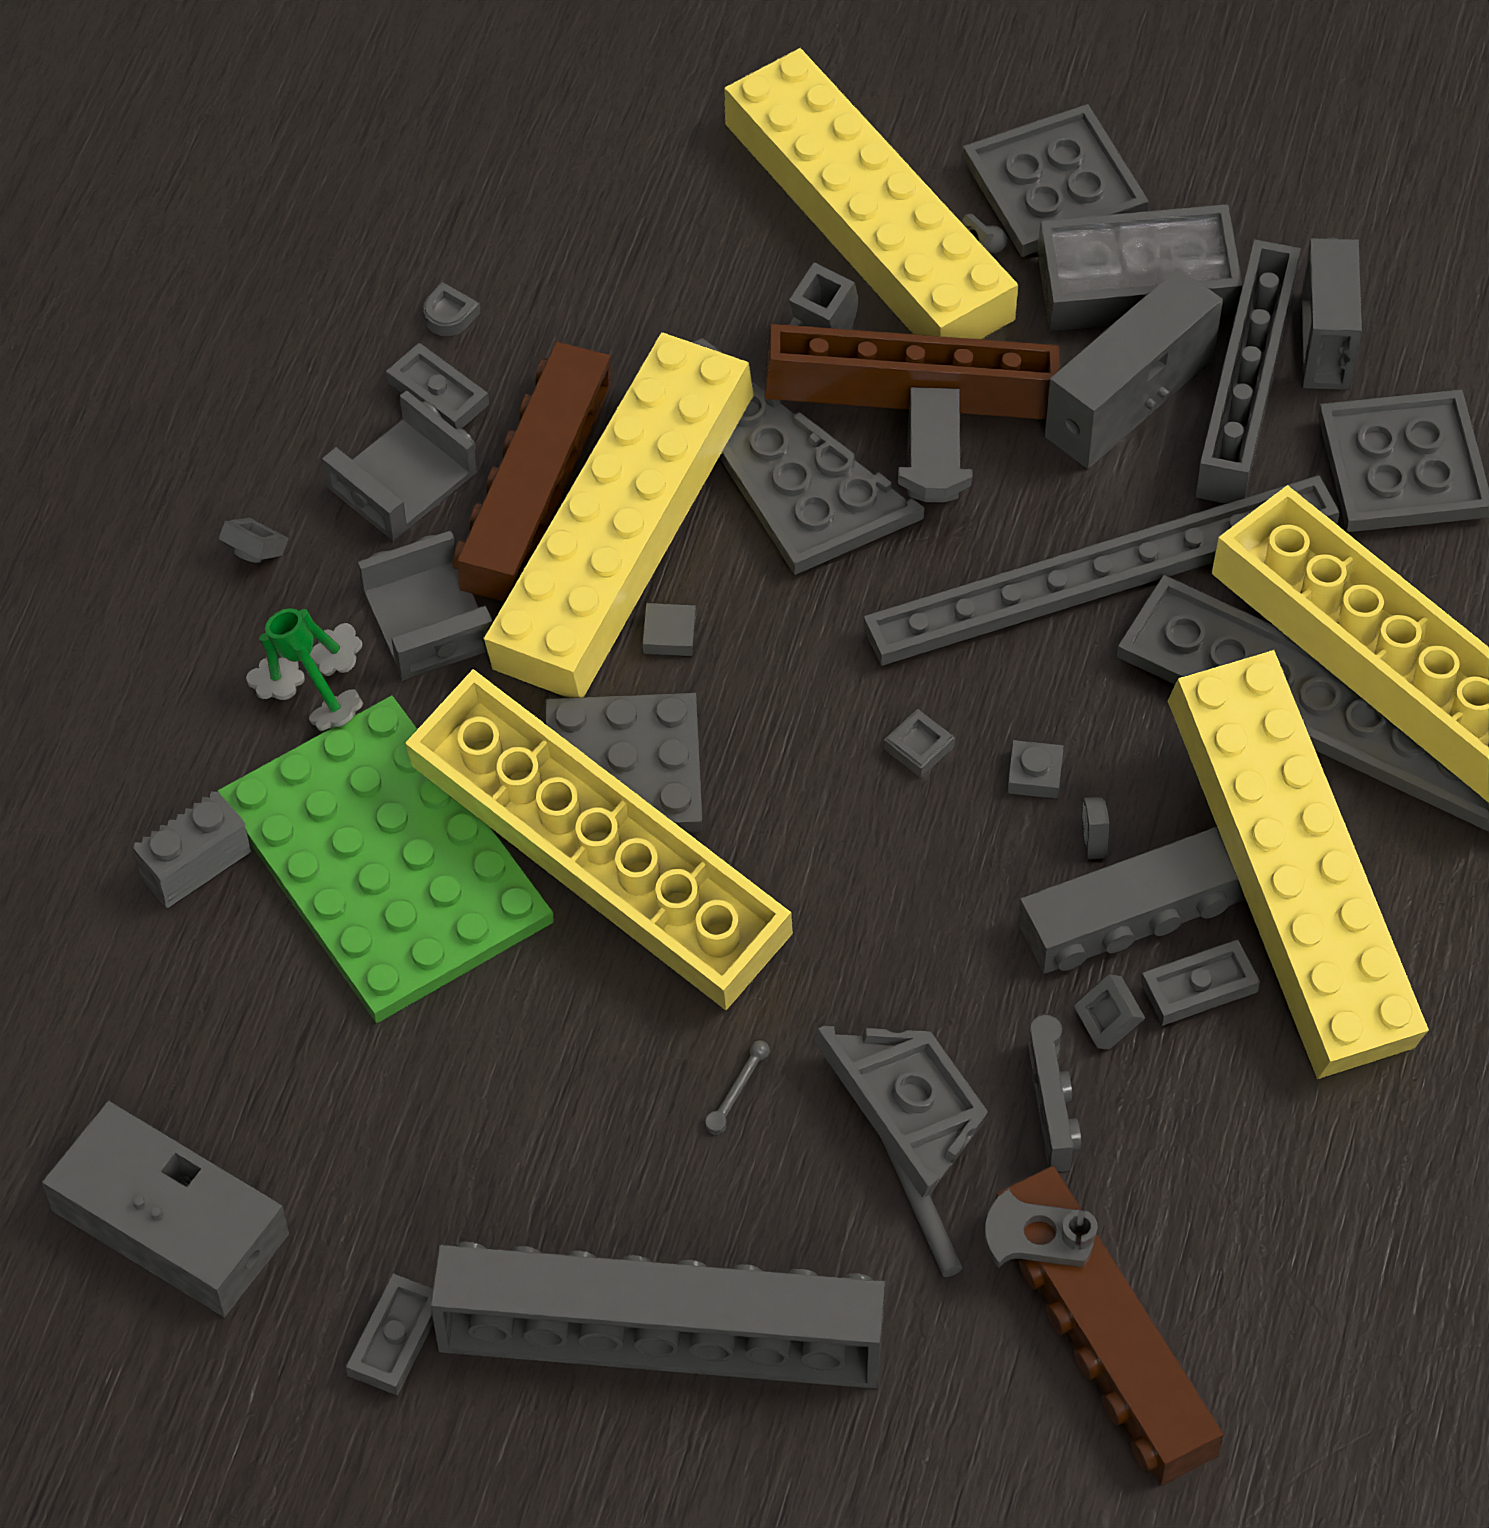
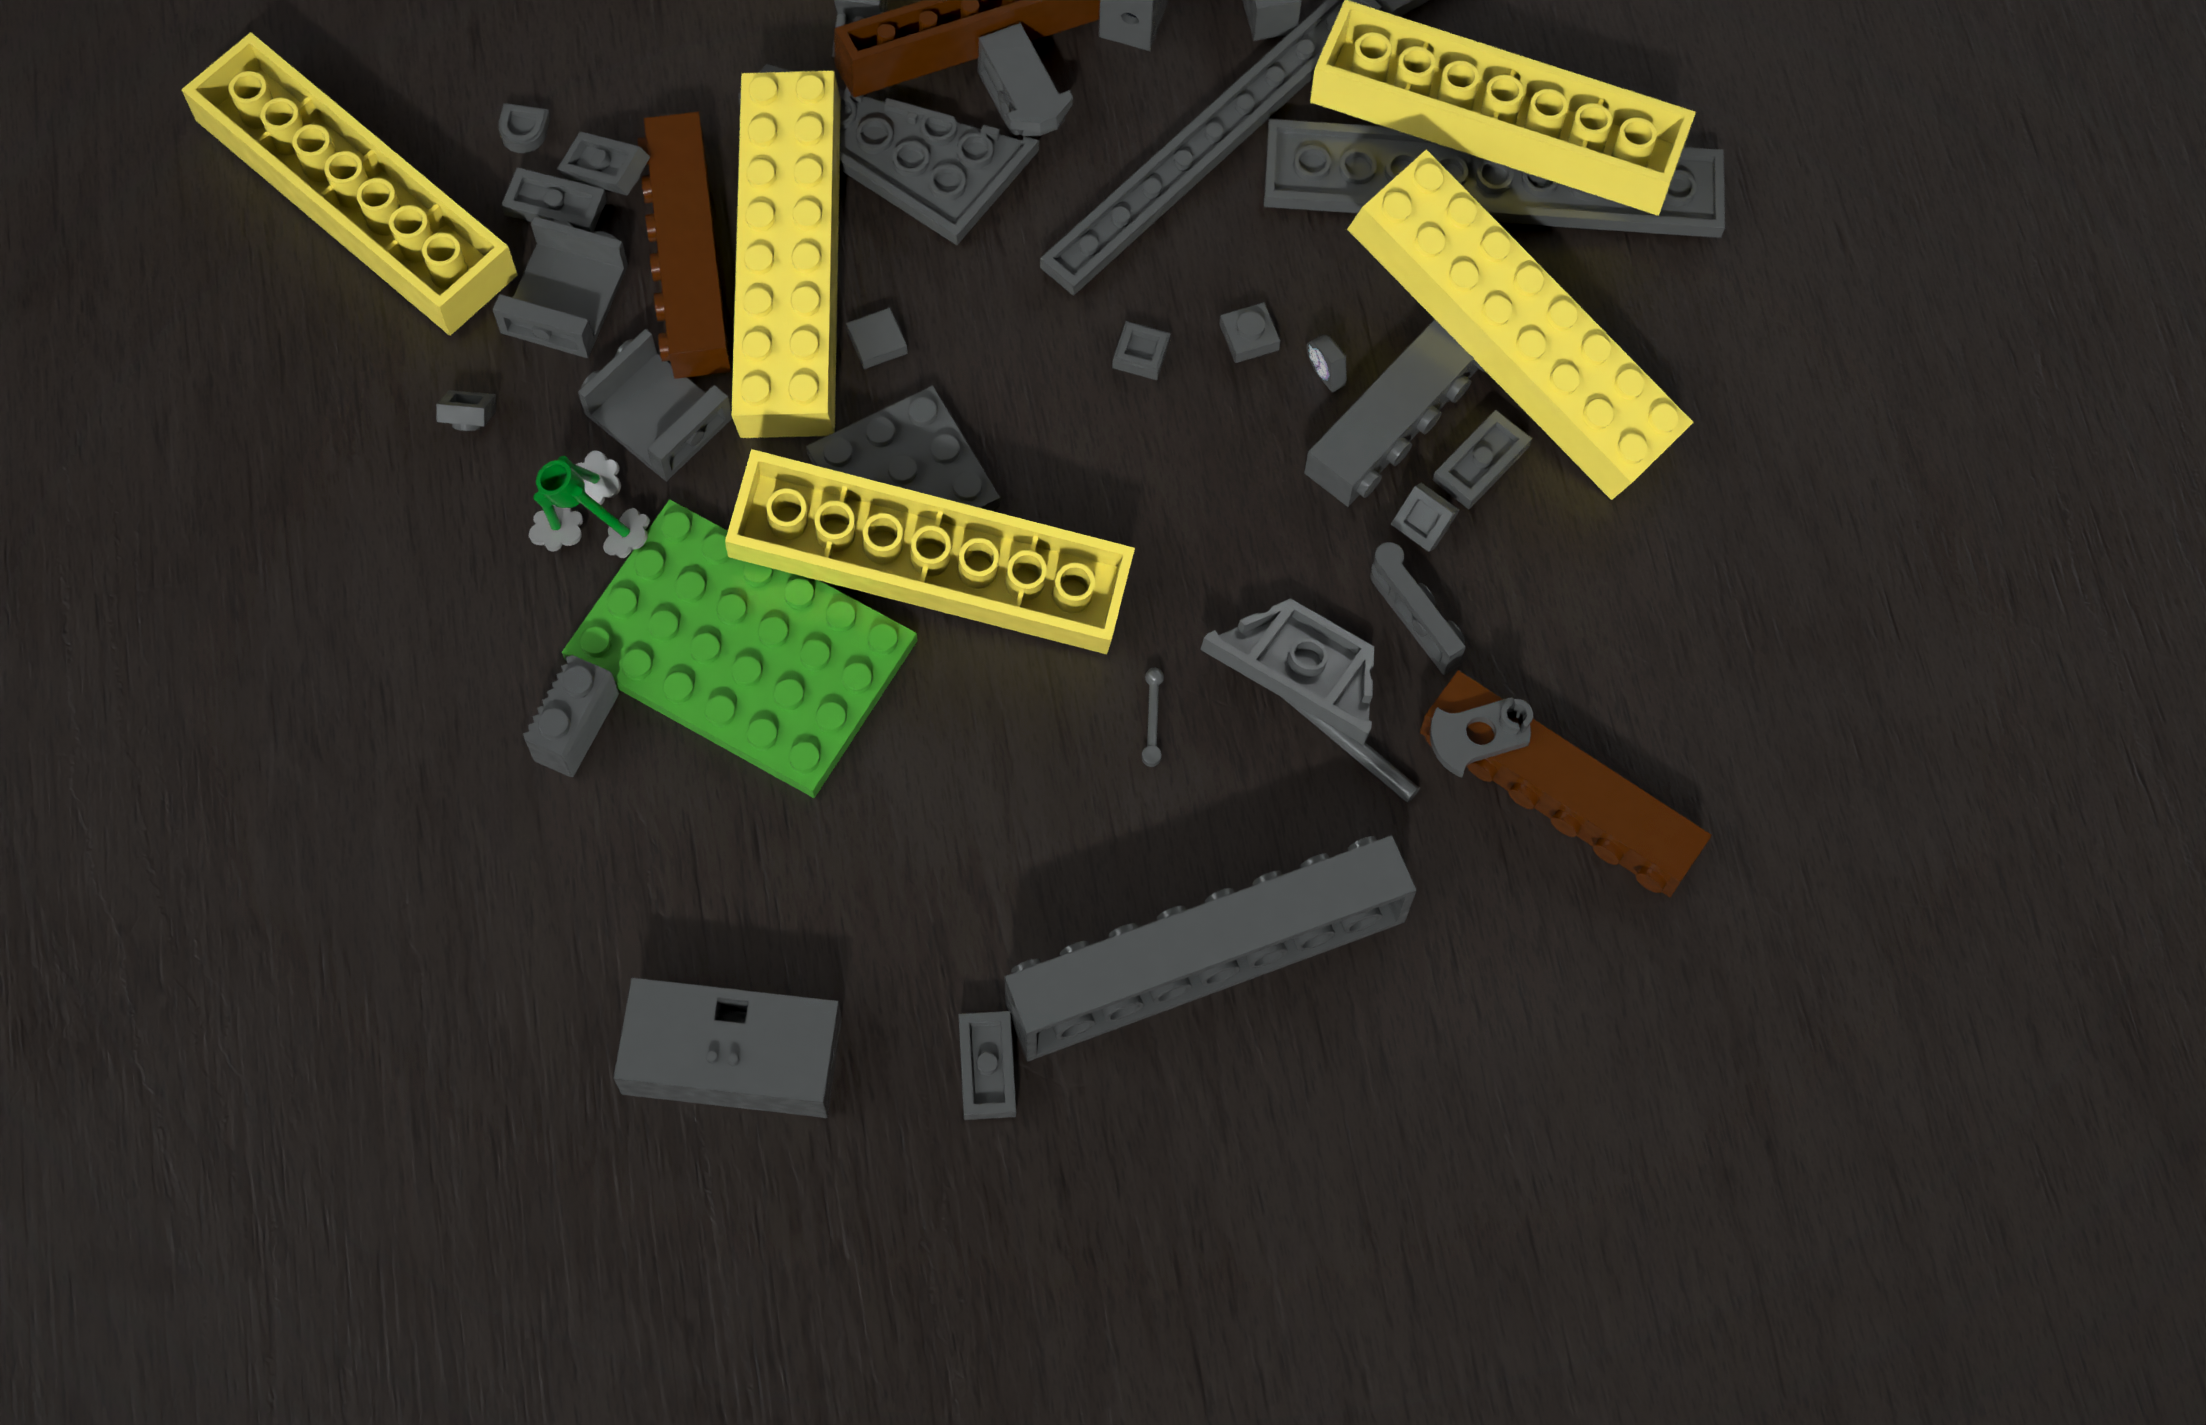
camera: 30 degrees left, 10 degrees up
(261, 300) = (350, 183): none -> light yellow brick
(499, 369) = (604, 163): none -> dark grey plate

